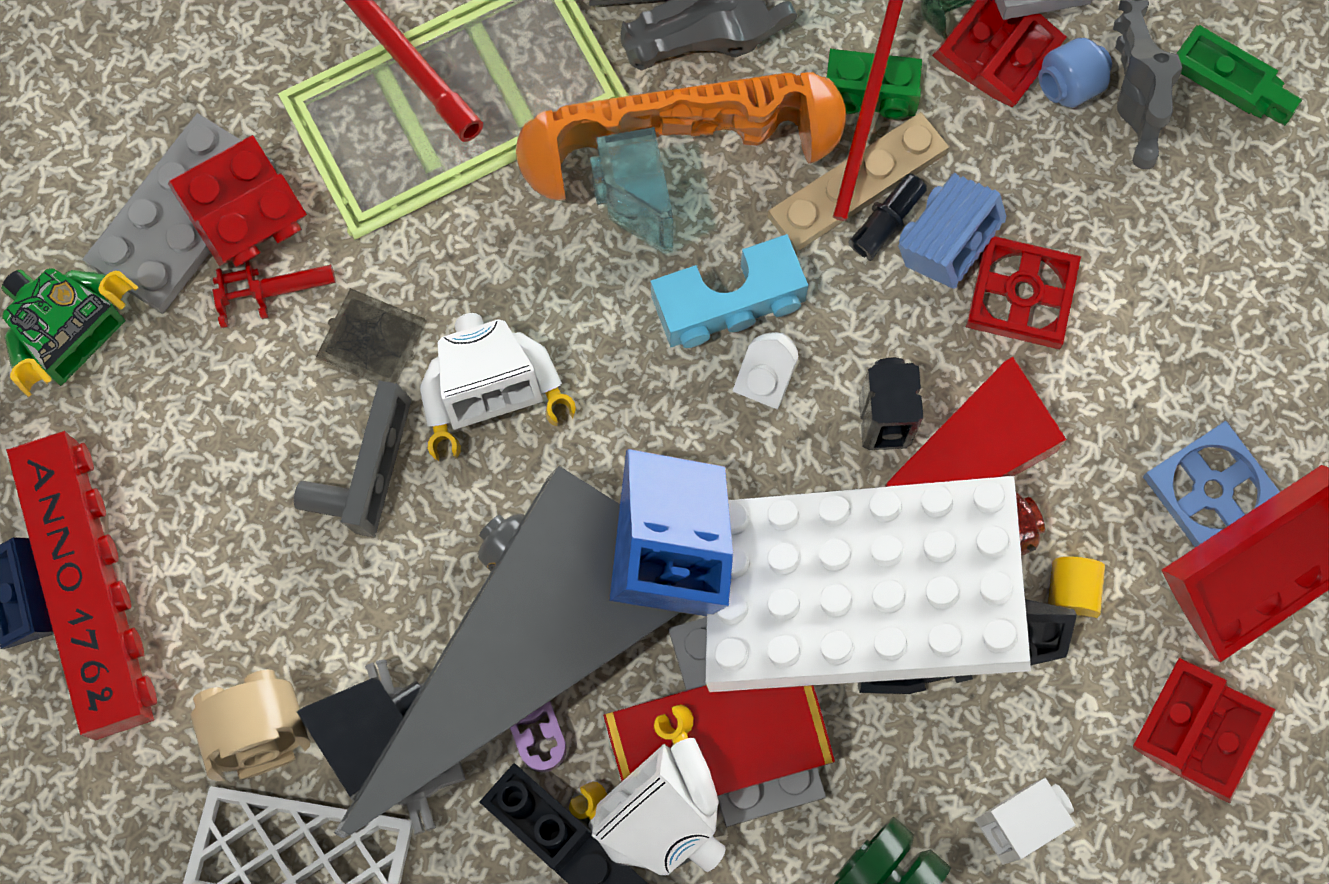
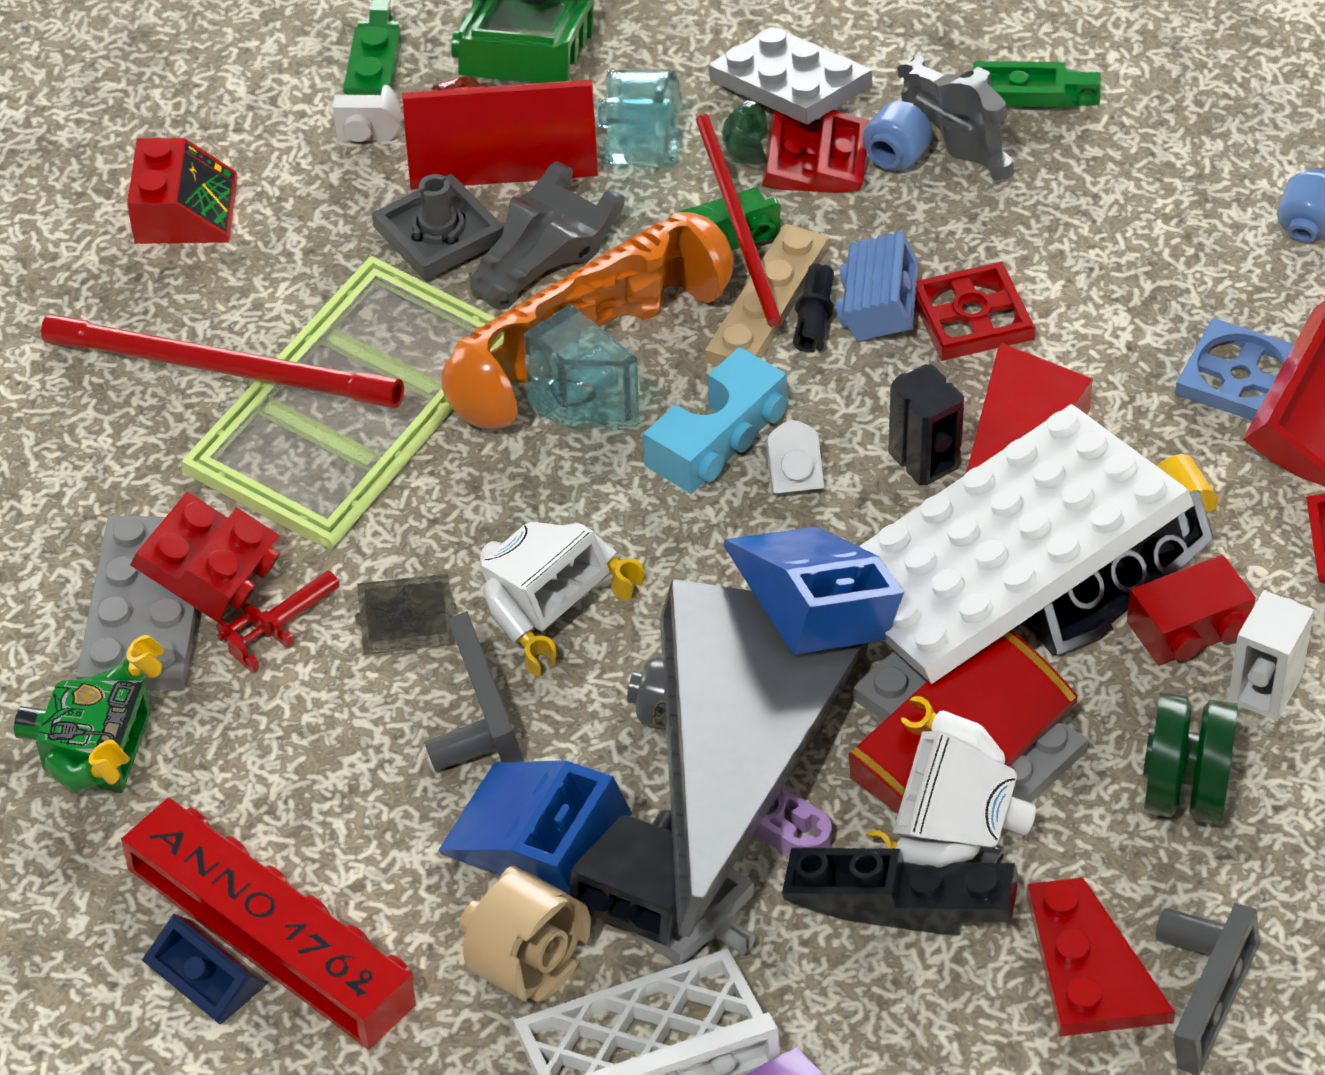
camera: 30 degrees left, 25 degrees down
(322, 626) = (535, 818): none -> blue slope
(997, 722) = (1190, 610): none -> red brick

